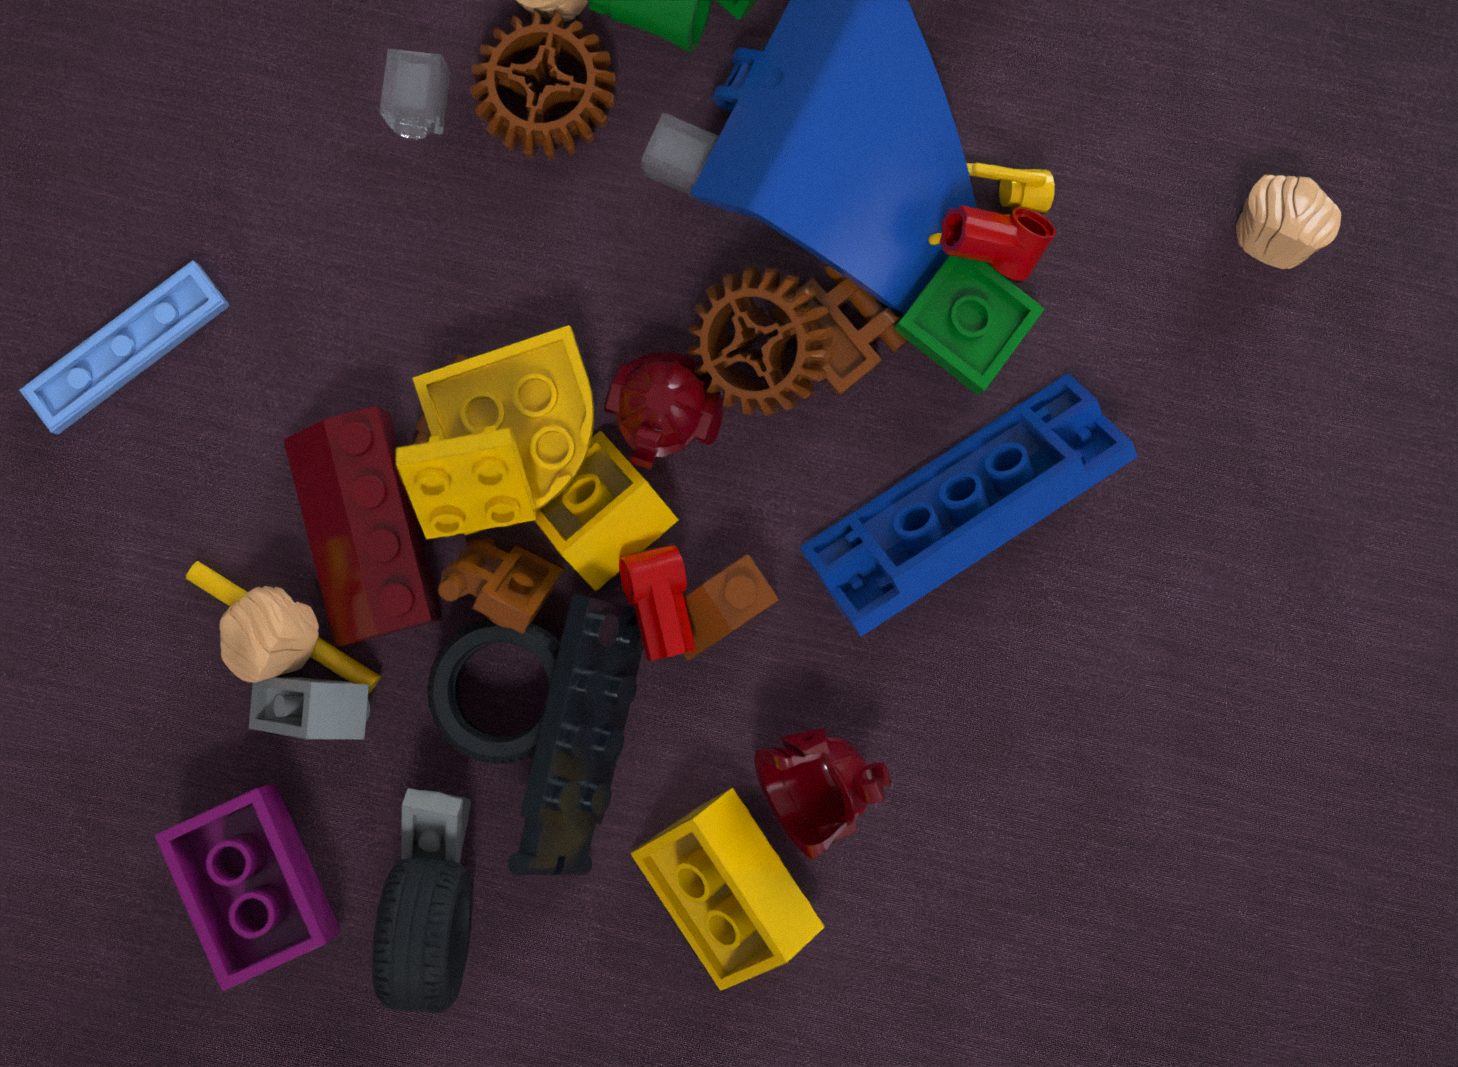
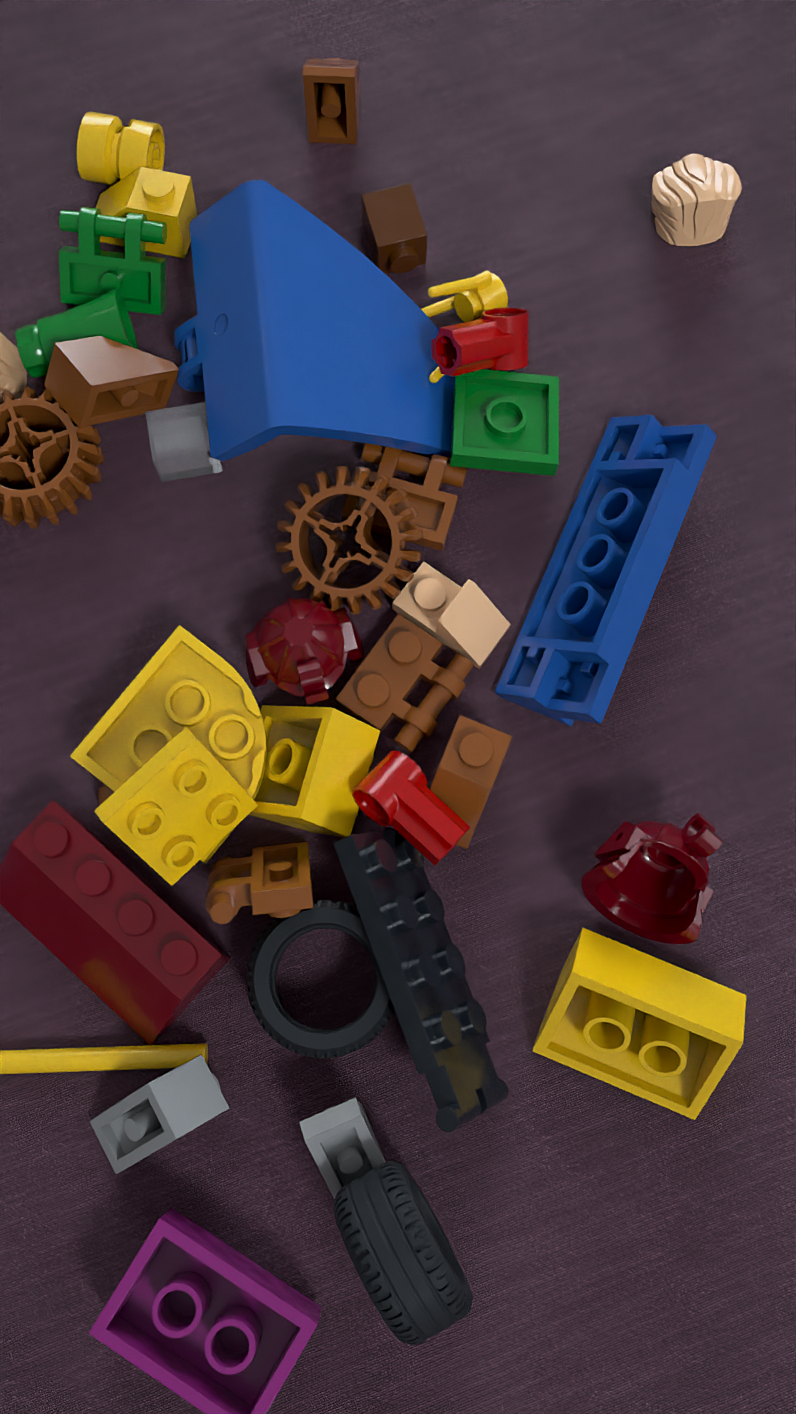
camera: 35 degrees left, 10 degrees down
(267, 634) = (79, 1072): light nougat hair -> none
(648, 61) = (107, 380): none -> dark orange slope
(725, 474) = (391, 673): none -> dark orange plate
(809, 457) = (452, 614): none -> light nougat slope
(996, 75) = (394, 229): none -> reddish brown brick

